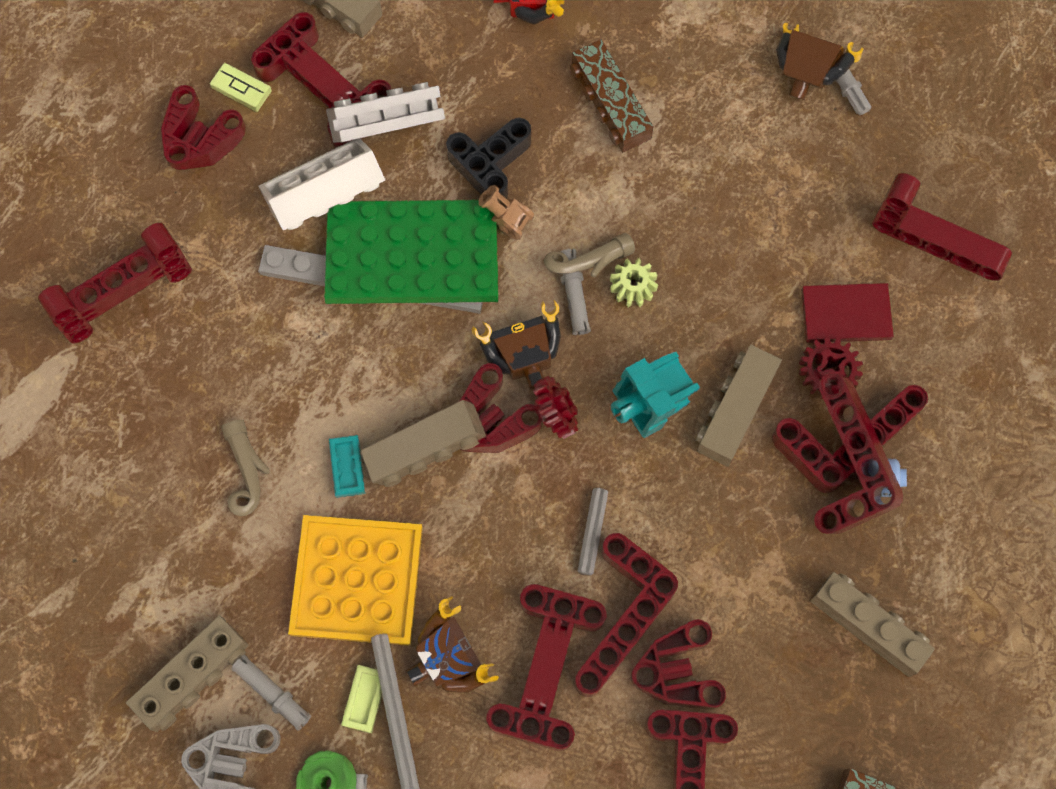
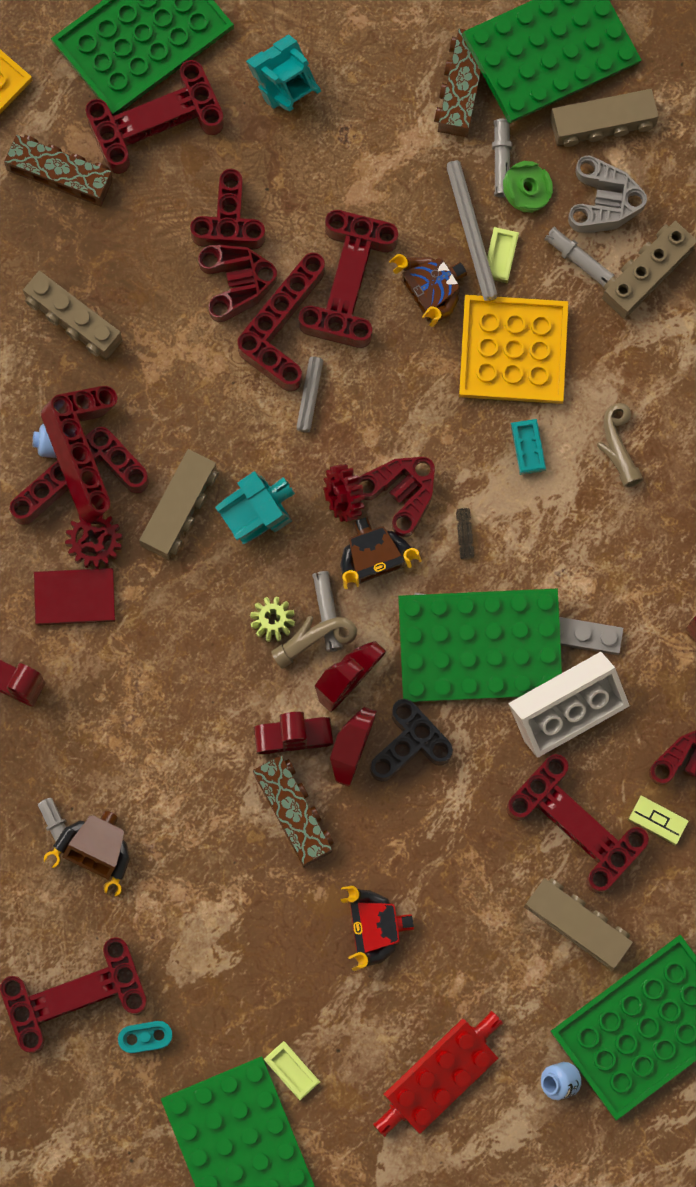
camera: 175 degrees right, 5 degrees up
(385, 113) = (512, 775): brick -> none
(422, 373) = (465, 534): none -> clear smoke axle
(423, 443) = (460, 457): dark tan brick -> none
(508, 213) = (392, 683): medium nougat connector -> none
(546, 232) = (346, 675): none -> dark red connector
(551, 149) = (350, 745): none -> dark red connector
(612, 162) = (293, 734): none -> dark red beam

